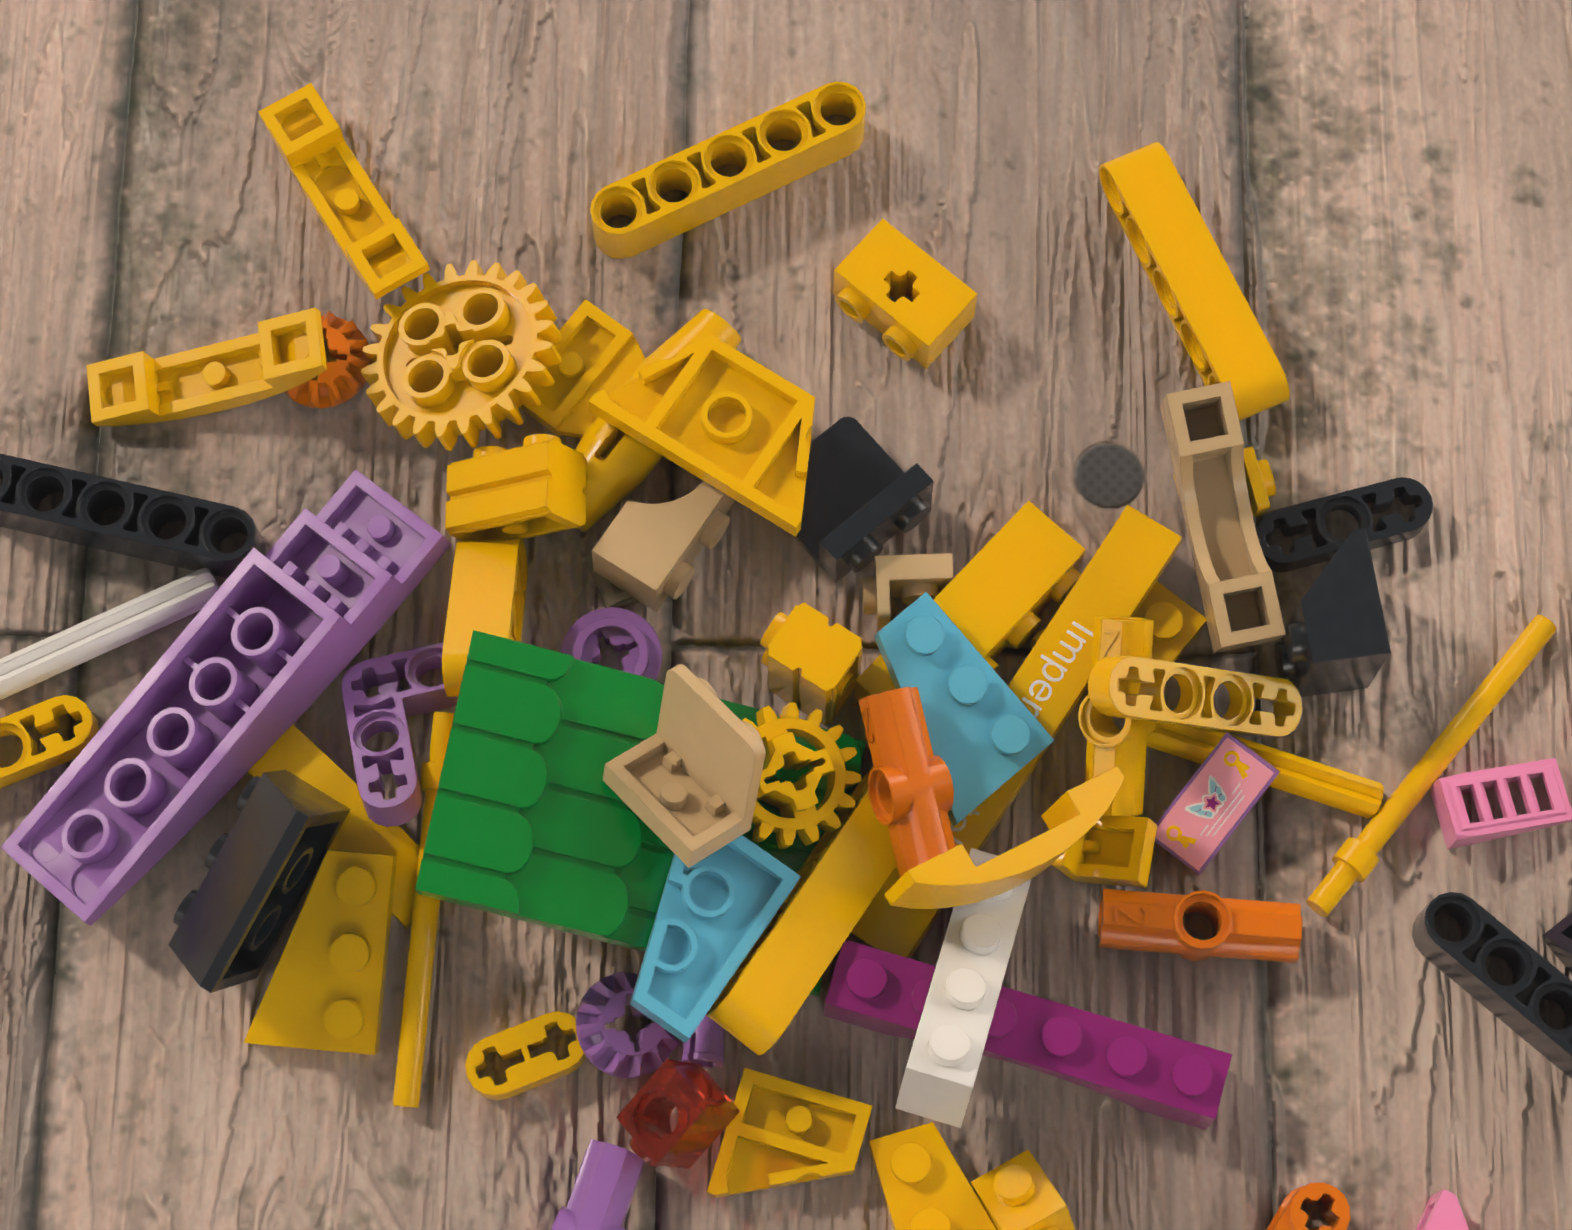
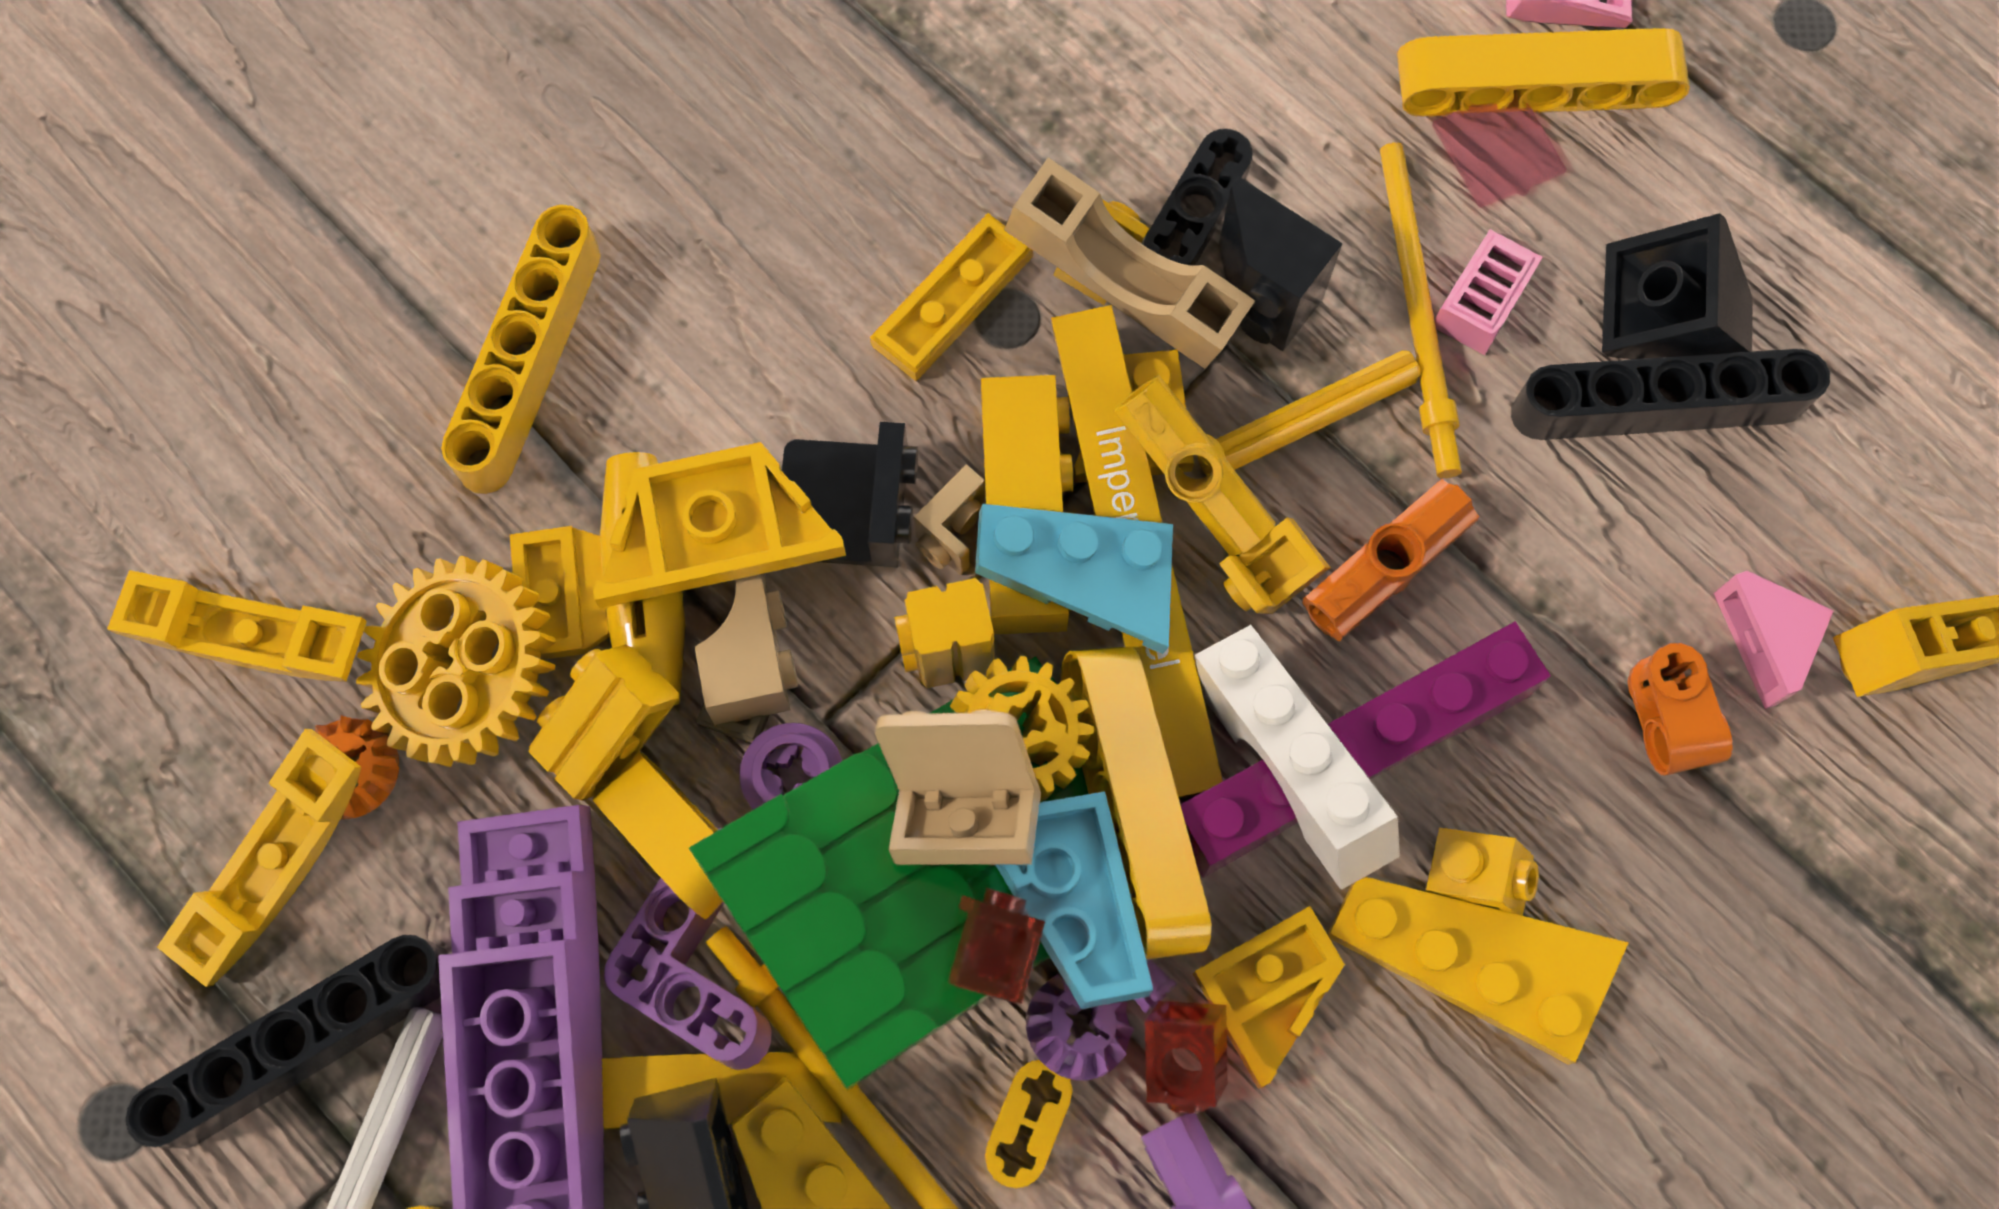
camera: 45 degrees left, 0 degrees up
(611, 900) = (996, 946): none -> clear red bracket
(895, 266) = (714, 305): yellow brick -> none
(908, 783) = (1119, 653): orange piece -> none
(955, 880) = (1252, 569): yellow slope -> none
(1077, 420) = (951, 297): none -> yellow tile
(1193, 278) = (924, 128): yellow beam -> none
(1196, 698) = (1238, 401): yellow beam -> none
(1214, 803) = (1314, 466): bright pink tile -> none

